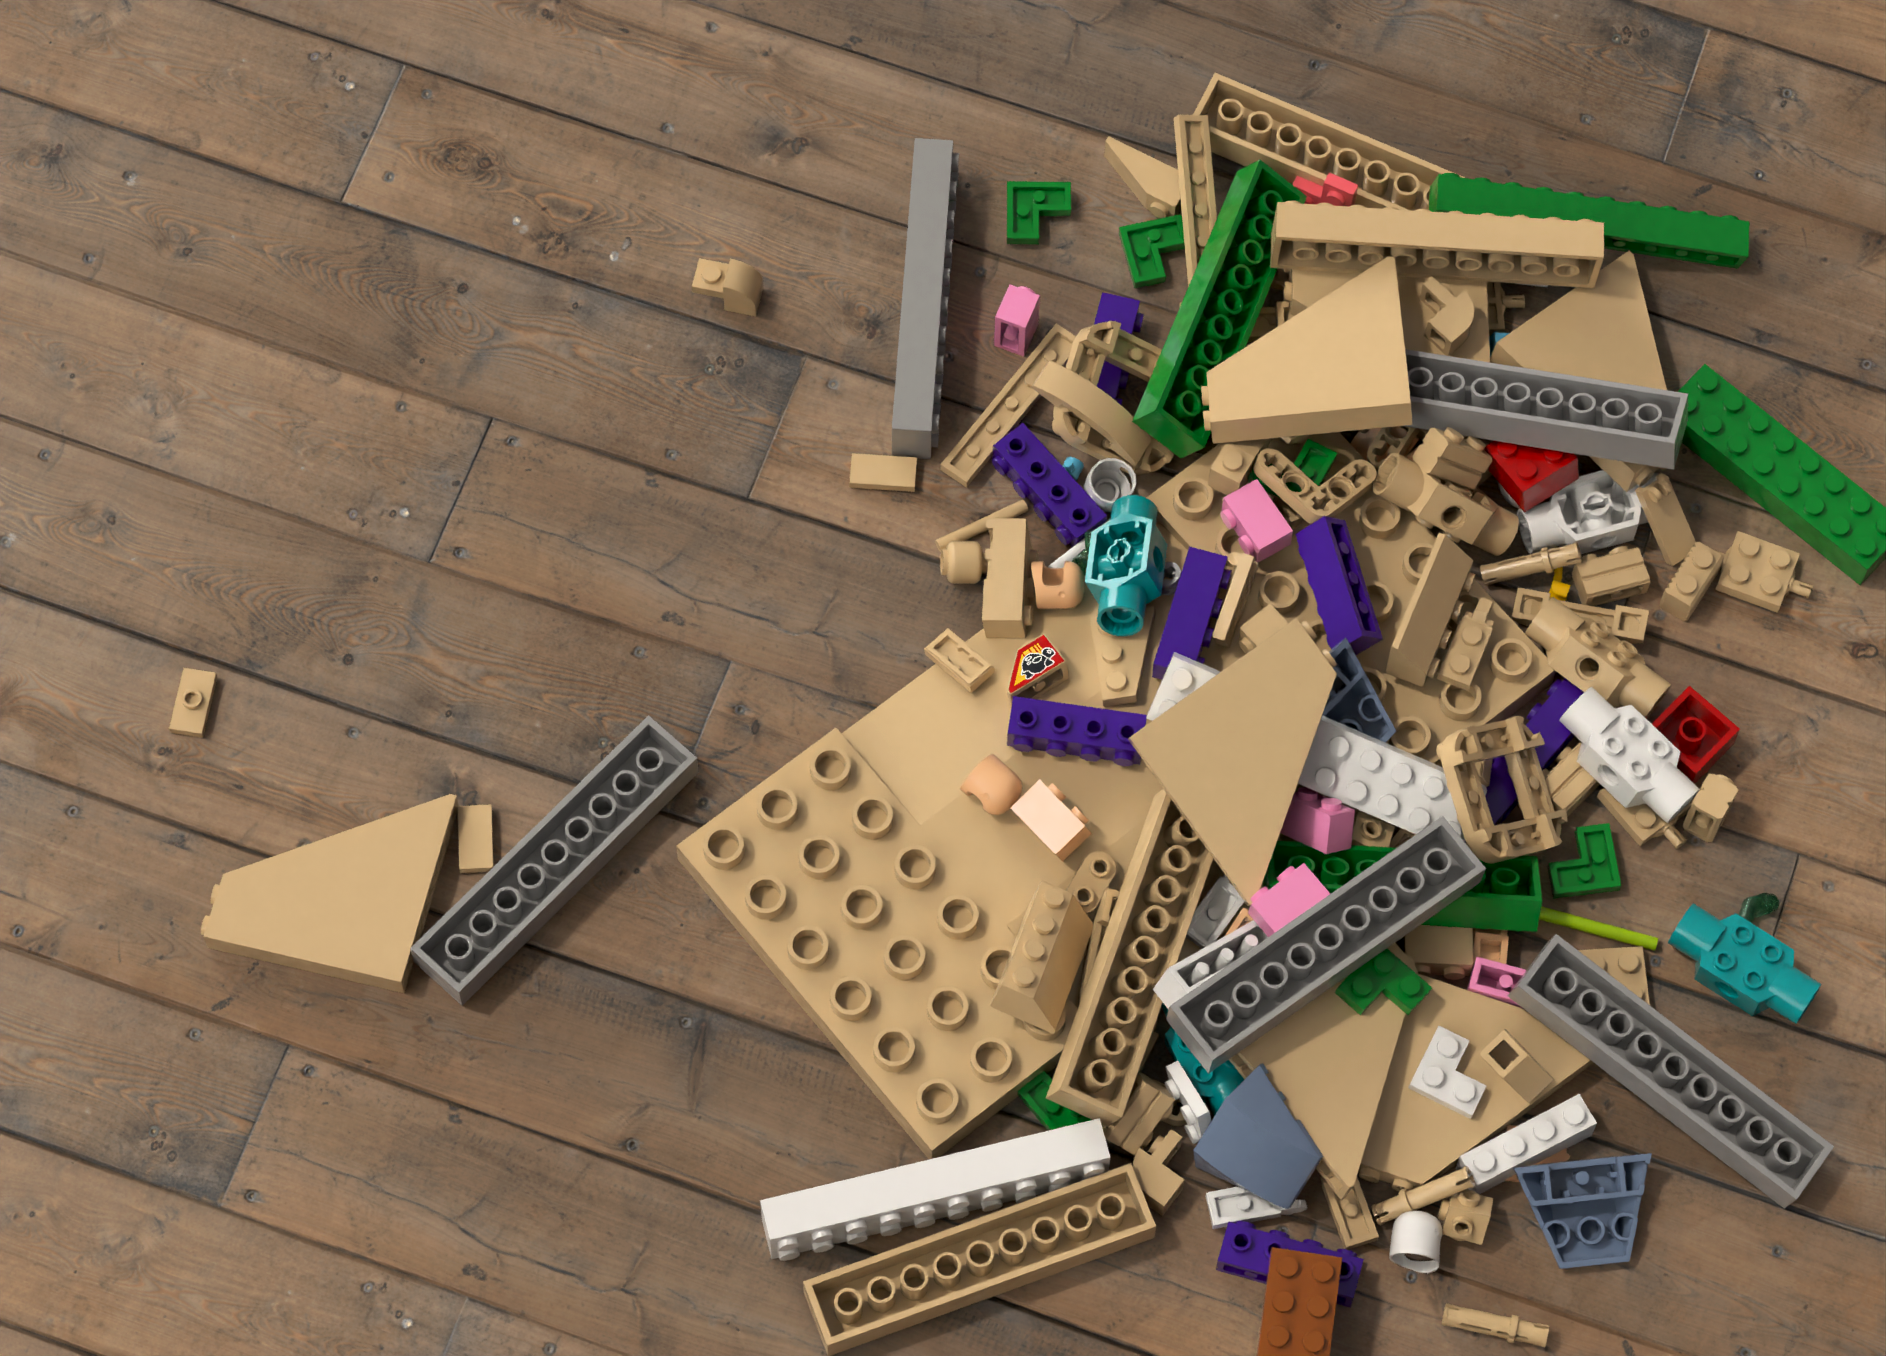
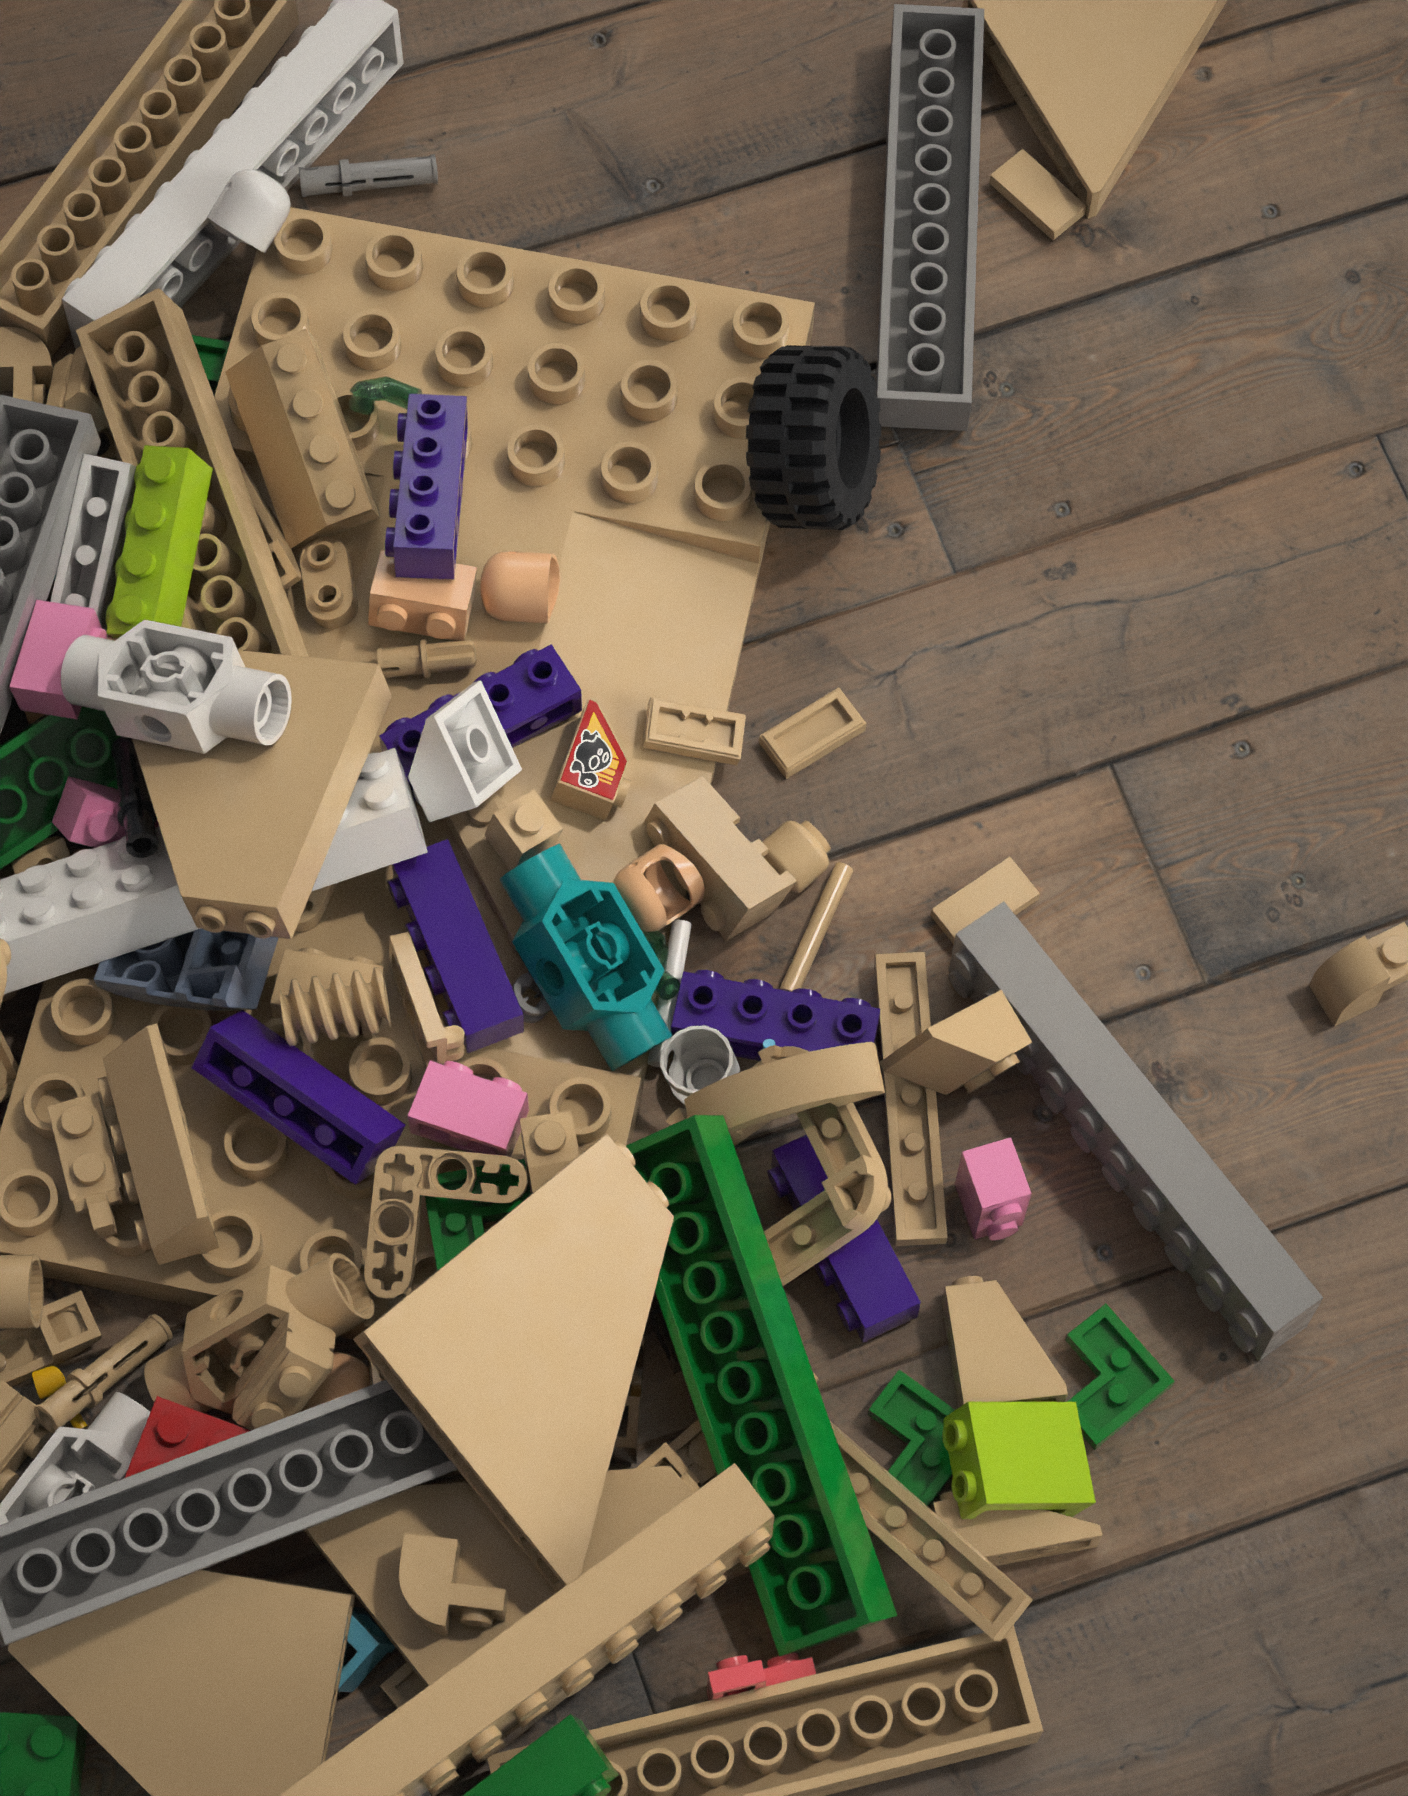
camera: 140 degrees right, 0 degrees up
(759, 747) = (813, 437): none -> black tyre
(862, 1155) = (368, 175): none -> light grey pin
(889, 628) = (812, 733): none -> tan tile
(957, 1127) = (251, 209): none -> white helmet
(973, 956) = (380, 389): none -> clear green arm
(974, 388) = (962, 1048): none -> tan slope
(1000, 863) = (429, 488): none -> brick
(1076, 791) = (426, 658): none -> tan axle
(1083, 257) = (994, 1349): none -> tan slope
(1109, 641) = (523, 829): none -> tan brick
(1113, 692) = (461, 756): none -> white slope
(1118, 192) = (1018, 1457): none -> lime panel
(1184, 927) = (159, 539): none -> lime brick
(1249, 802) = (176, 687): none -> white brick
(1283, 606) = (334, 1007): none -> tan piece
(1304, 800) = (135, 805): none -> black pin

